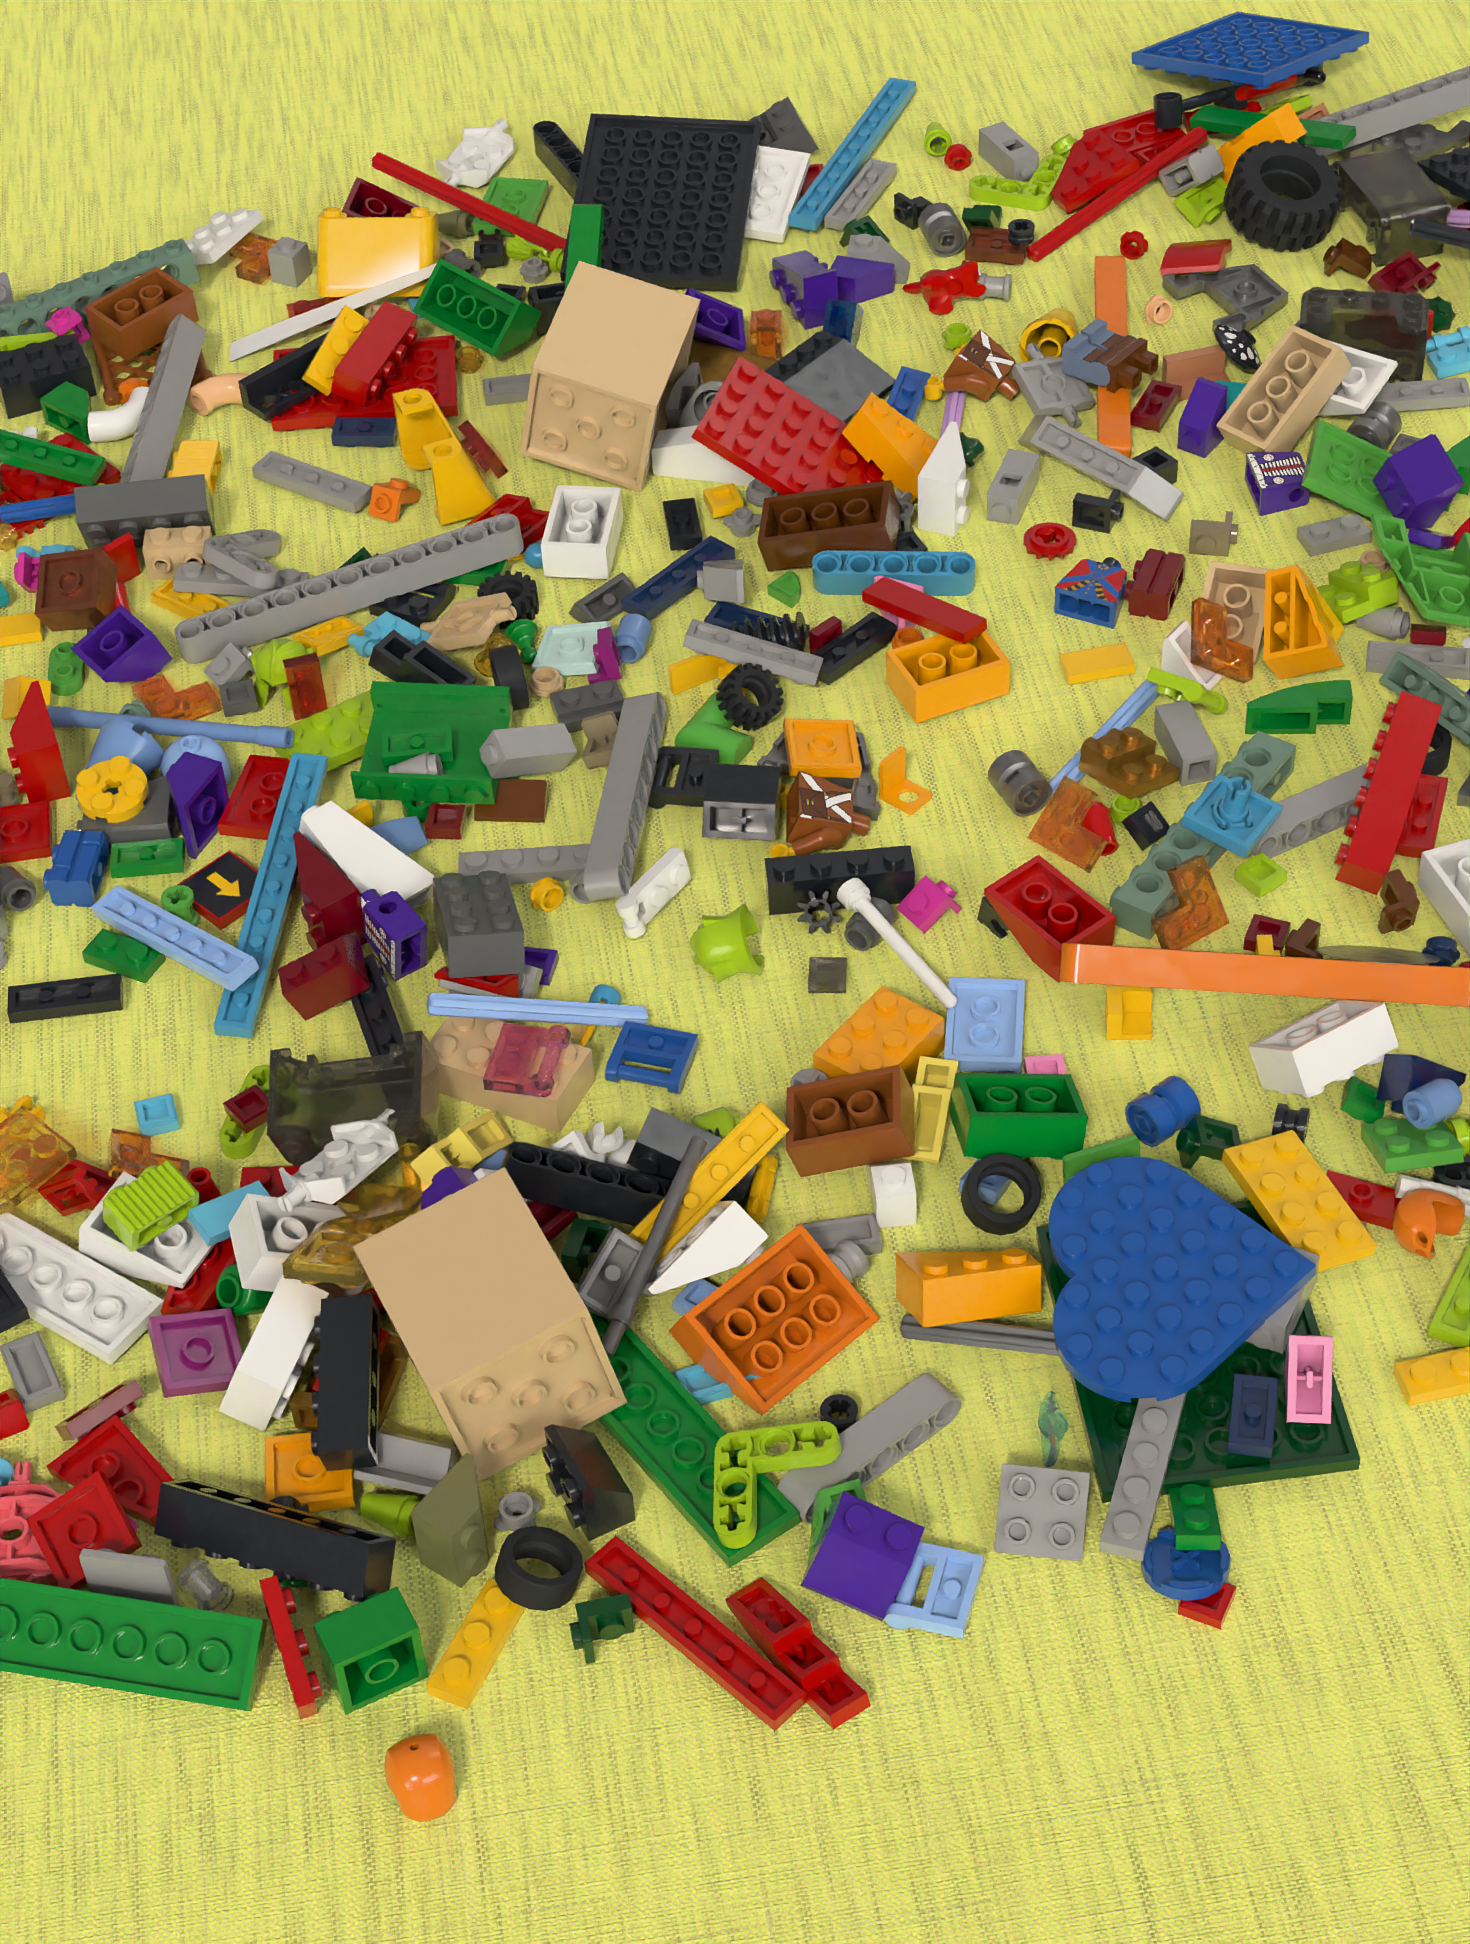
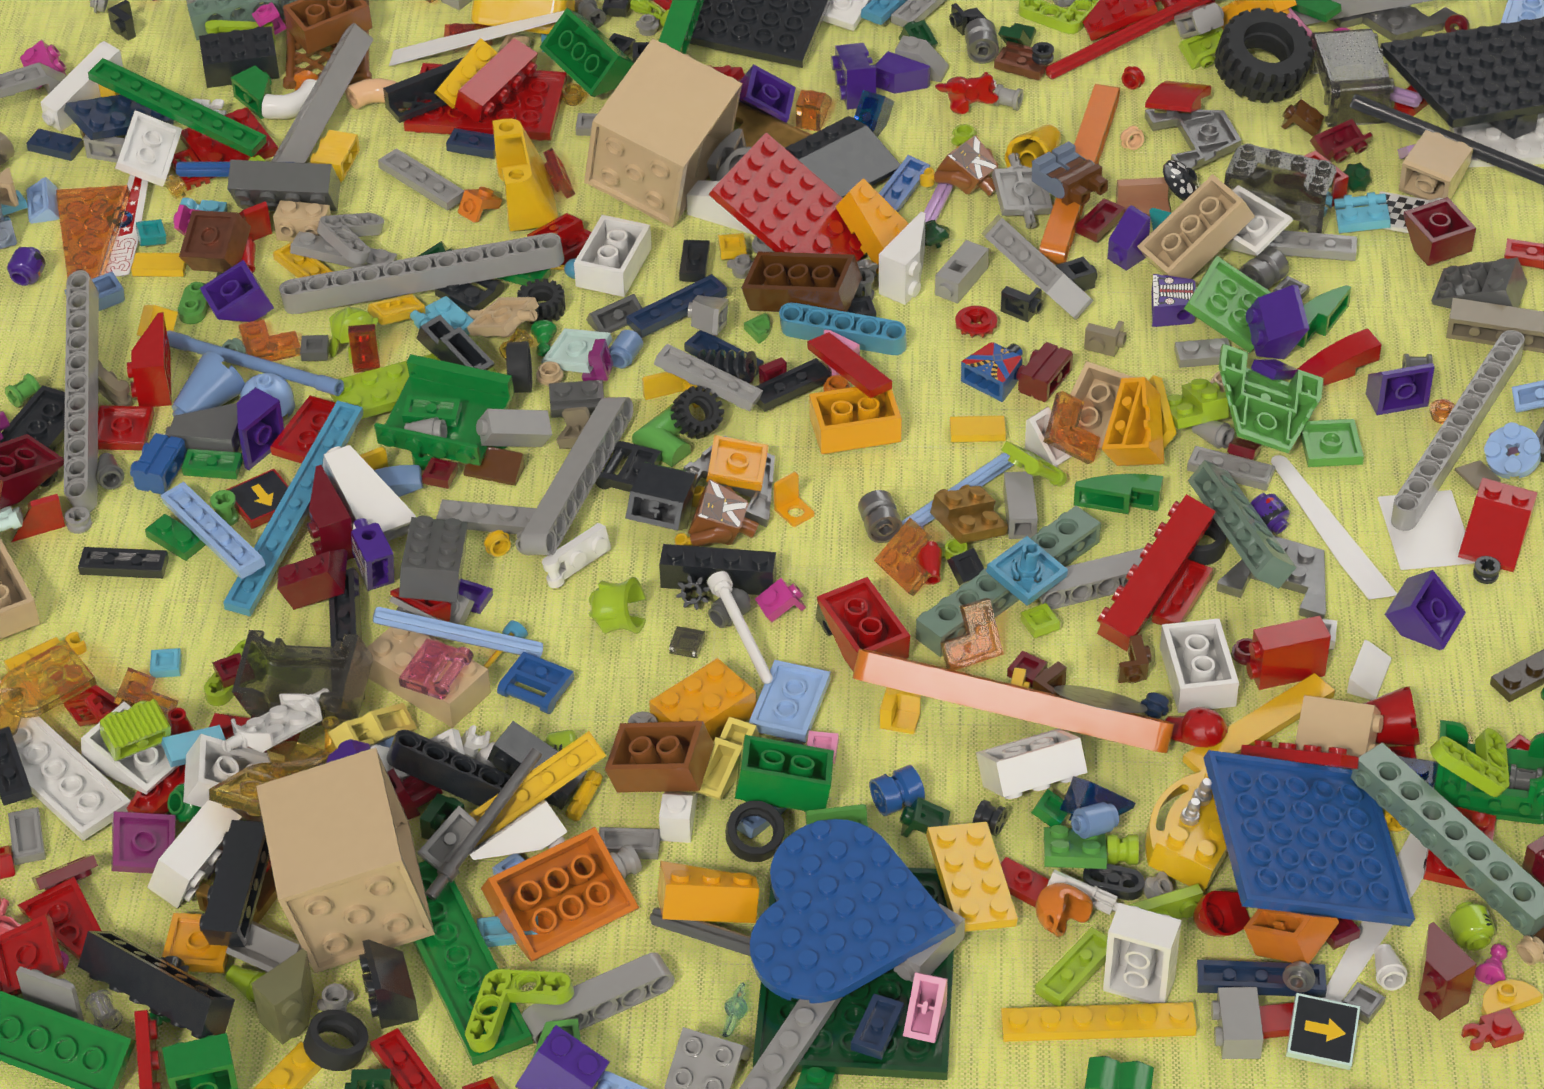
camera: 10 degrees right, 0 degrees up
(109, 774) = (196, 395): yellow plate -> none
(230, 665) = (315, 320): light grey bracket -> none
(841, 1404) = (584, 963): black bush -> none

